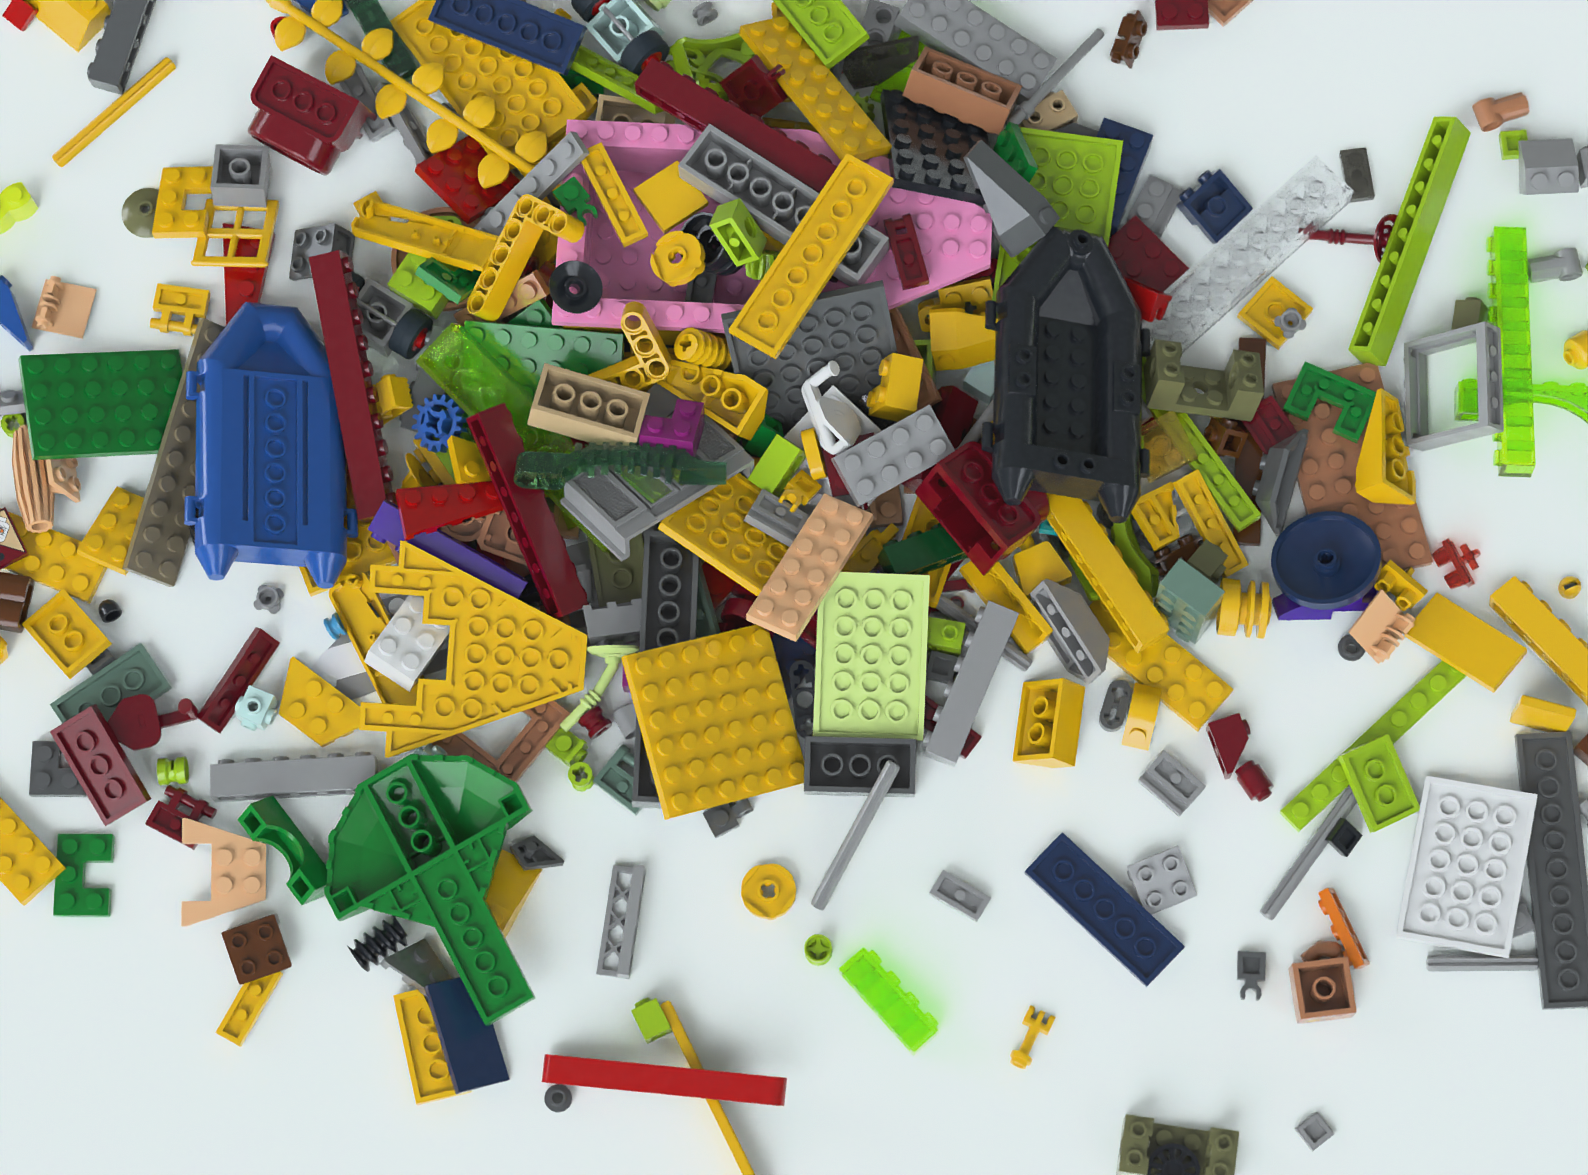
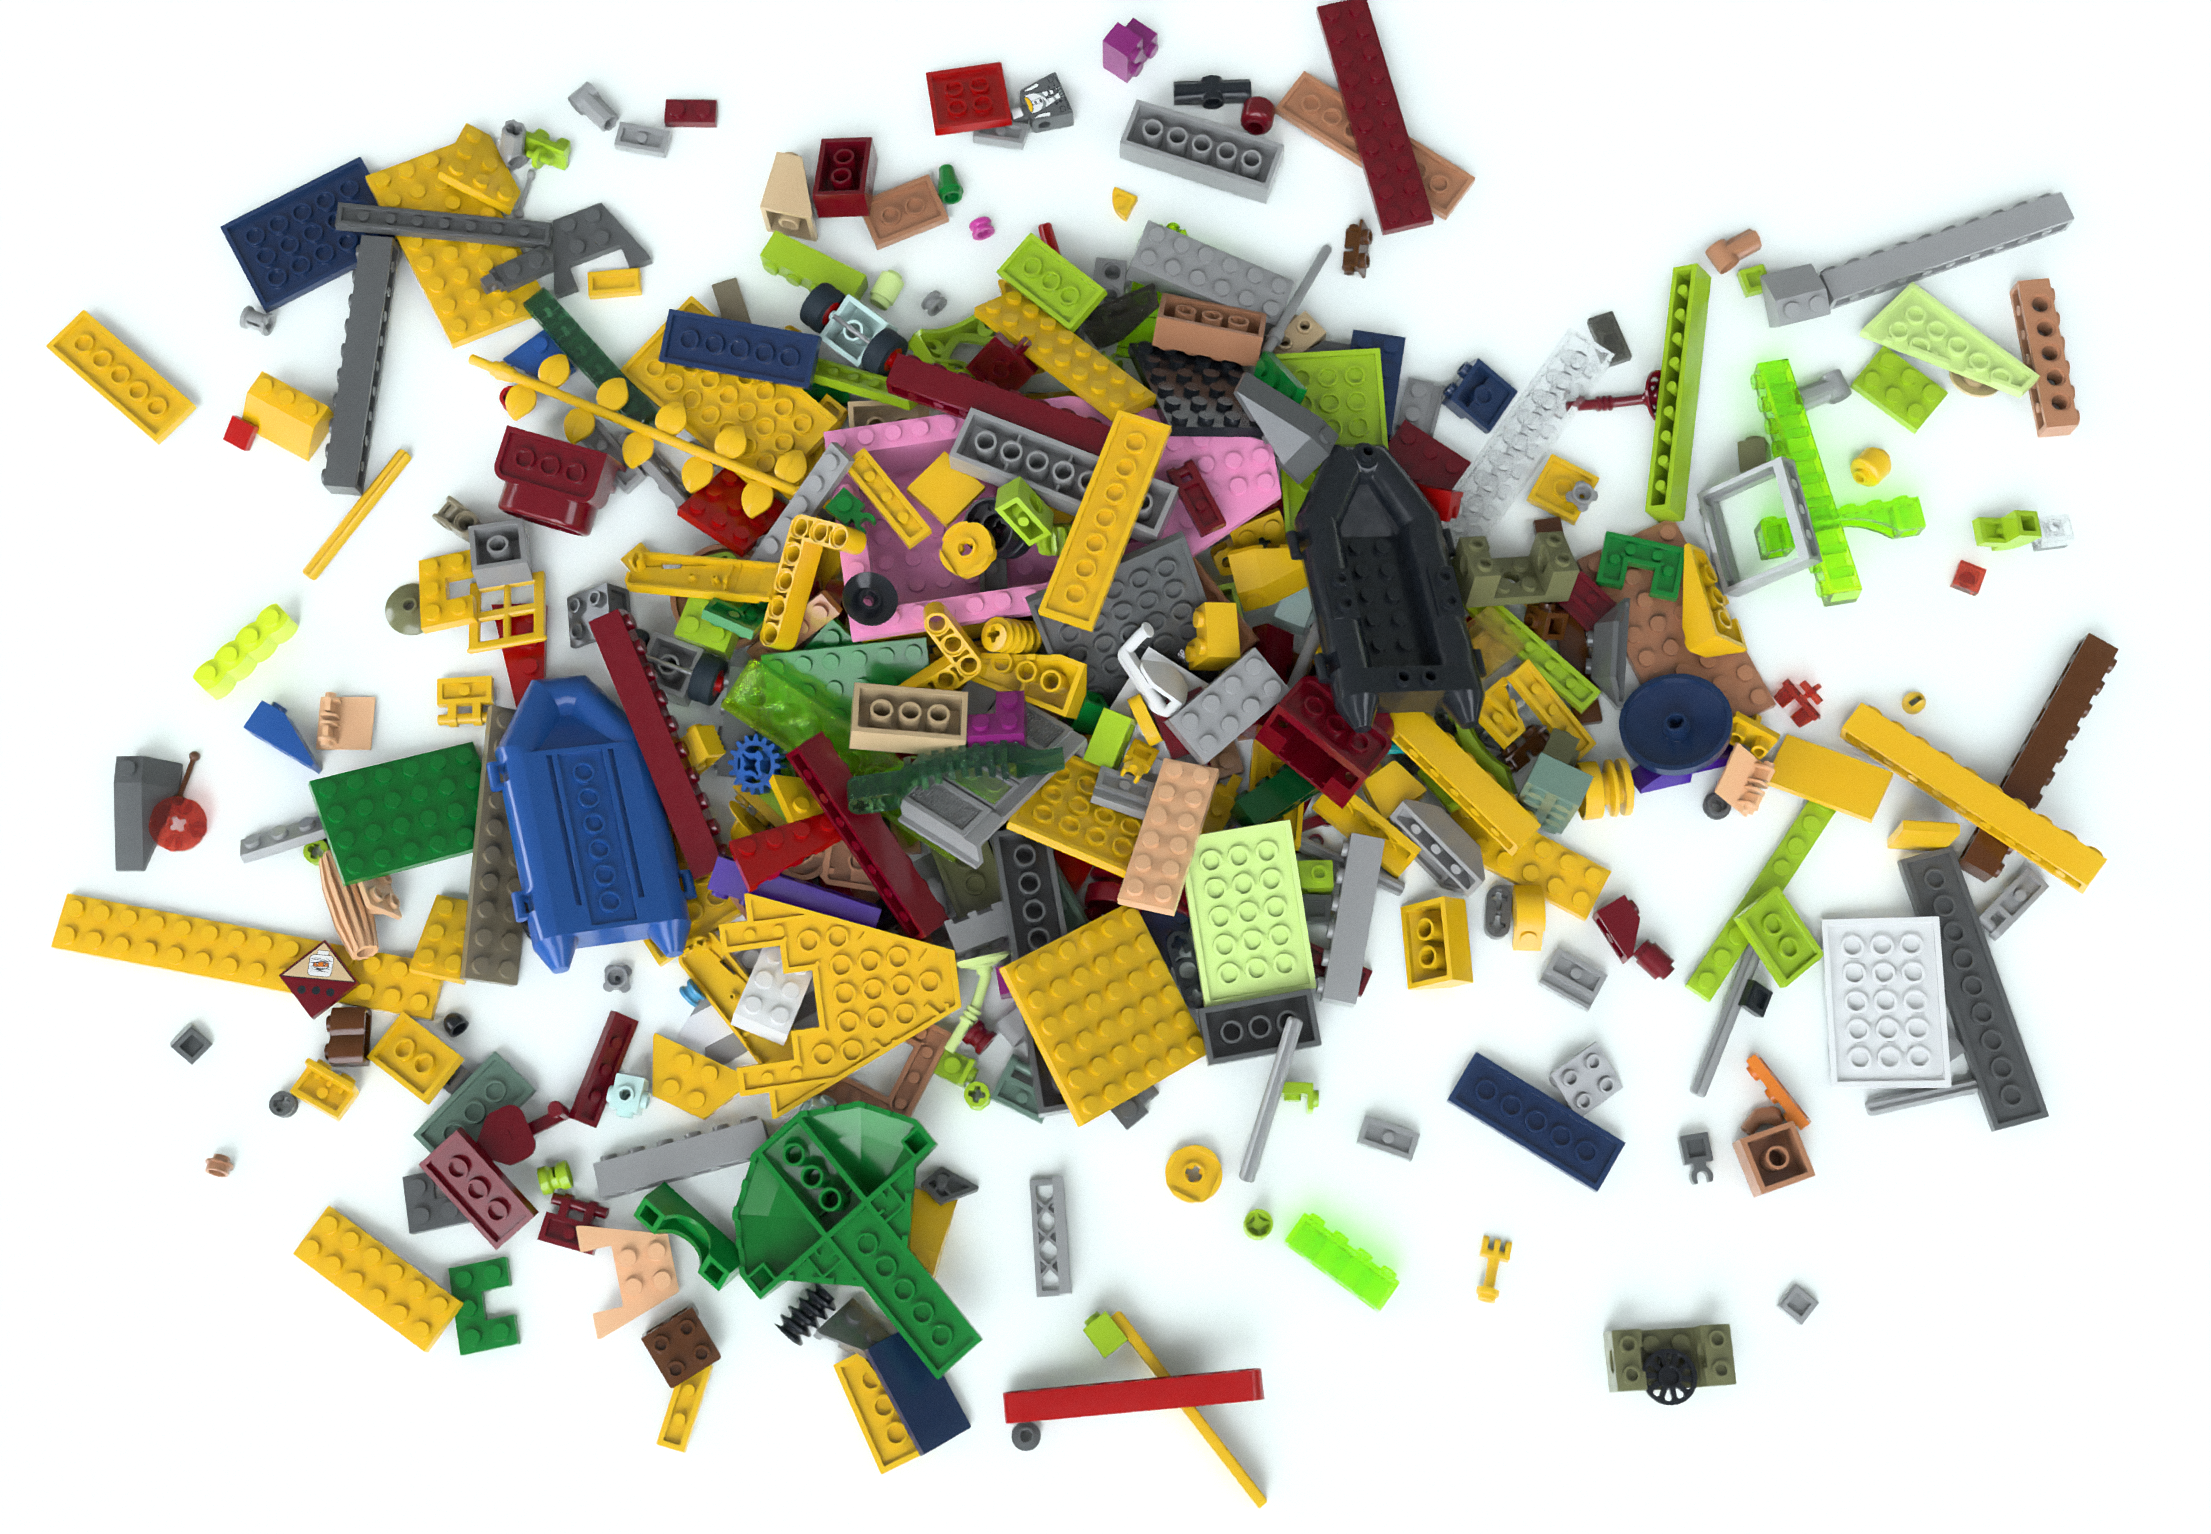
camera: 15 degrees left, 0 degrees up
(206, 133) = (456, 518): none -> dark tan piece
(881, 833) = (1295, 1090): none -> lime bracket

